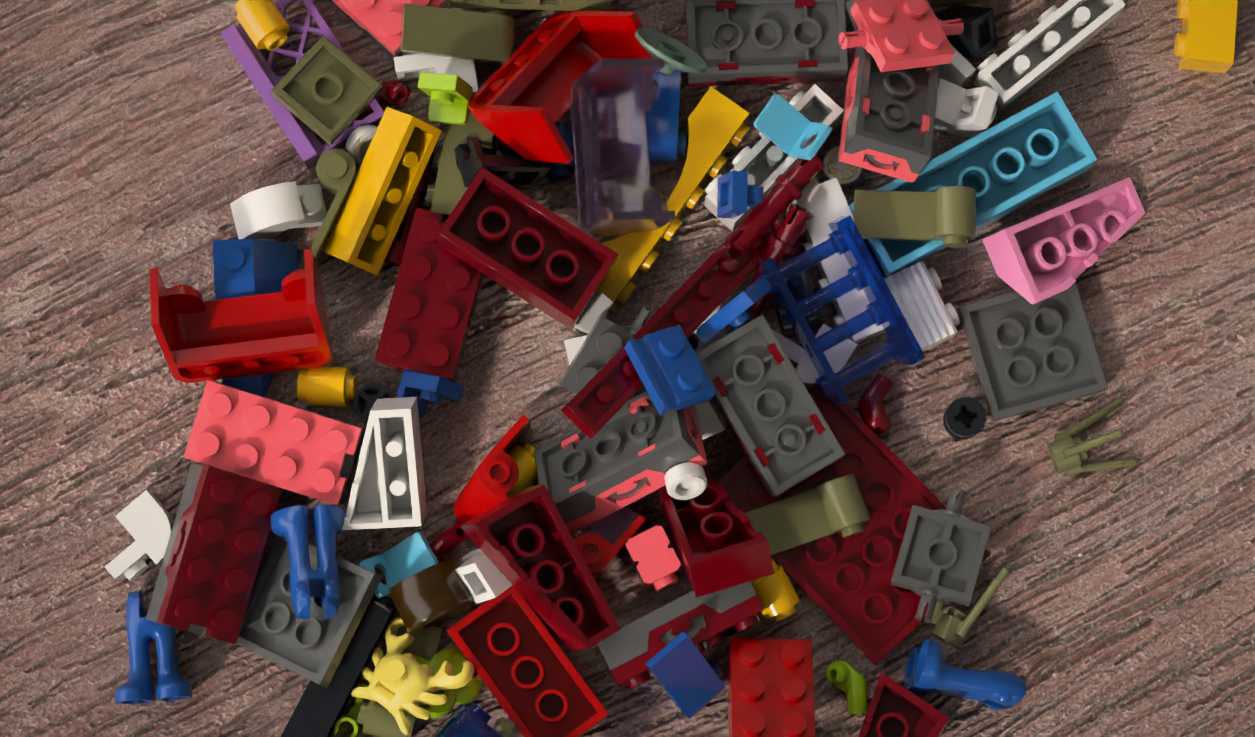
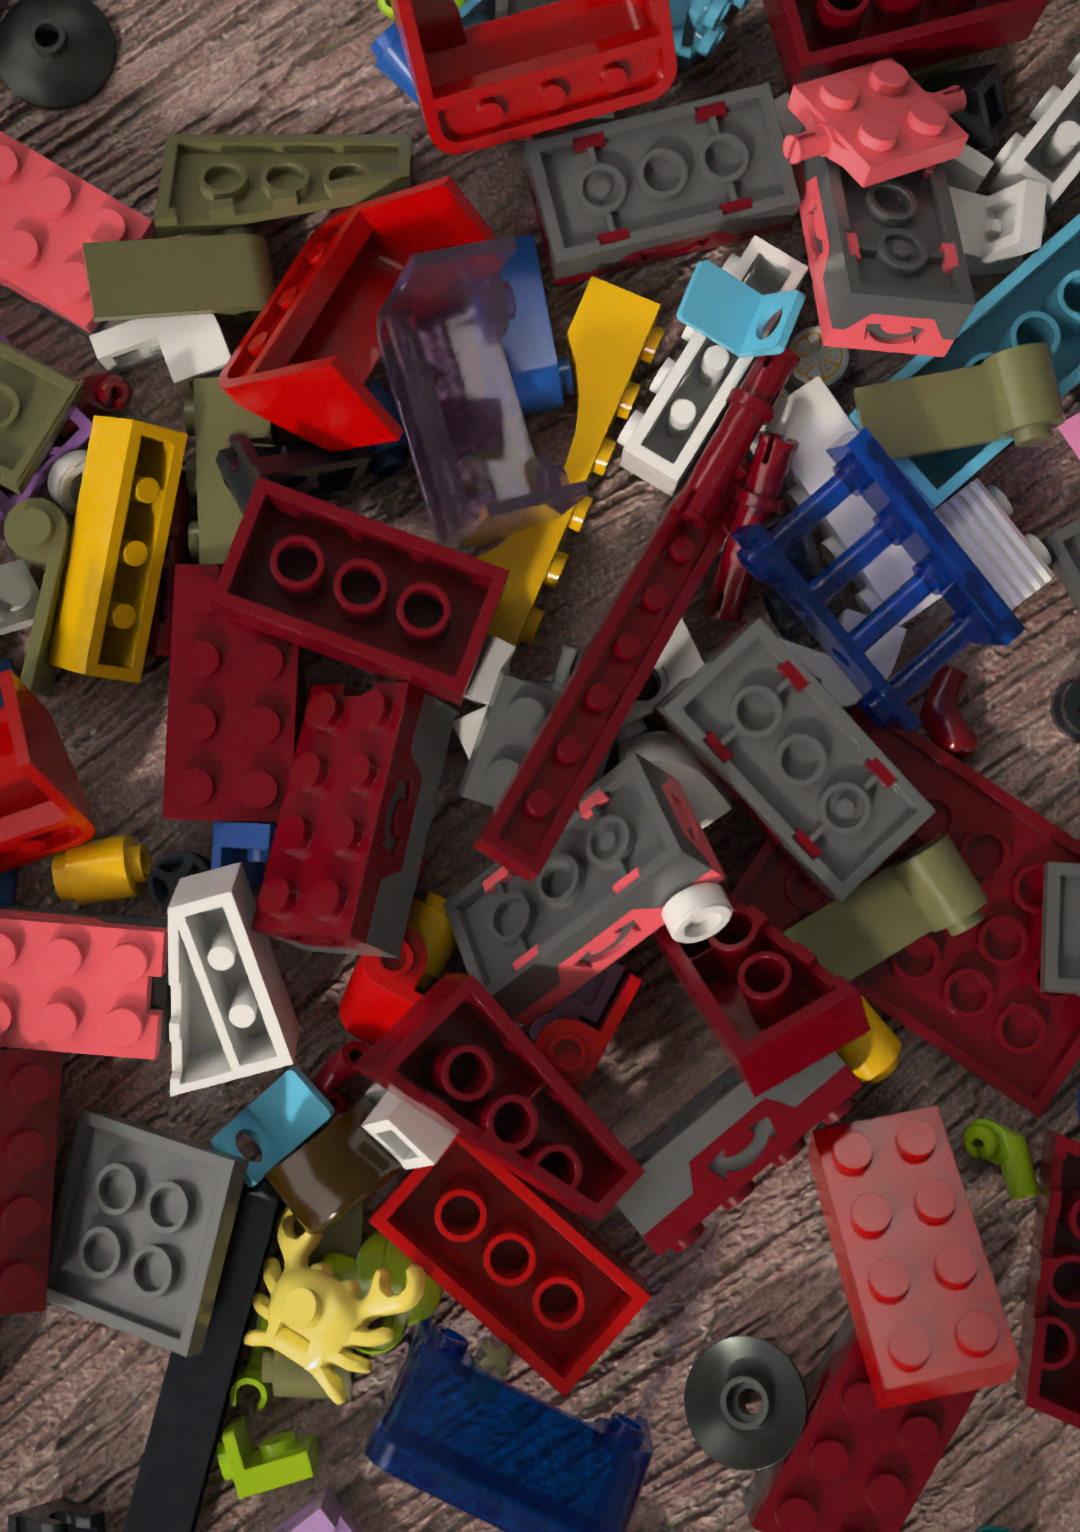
camera: 15 degrees left, 5 degrees up
(304, 582) = (123, 1196): blue piece -> none
(448, 97) = (184, 375): lime bracket -> none
(492, 385) = (354, 820): none -> dark red piece
(654, 560) = (668, 1035): coral brick -> none
(670, 370) = (634, 741): blue plate -> none
(674, 53) = (530, 232): sand green dish -> none
(687, 675) = (761, 1209): blue door -> none
(735, 311) = (714, 620): blue plate -> none
(736, 194) = (673, 435): blue tile -> none

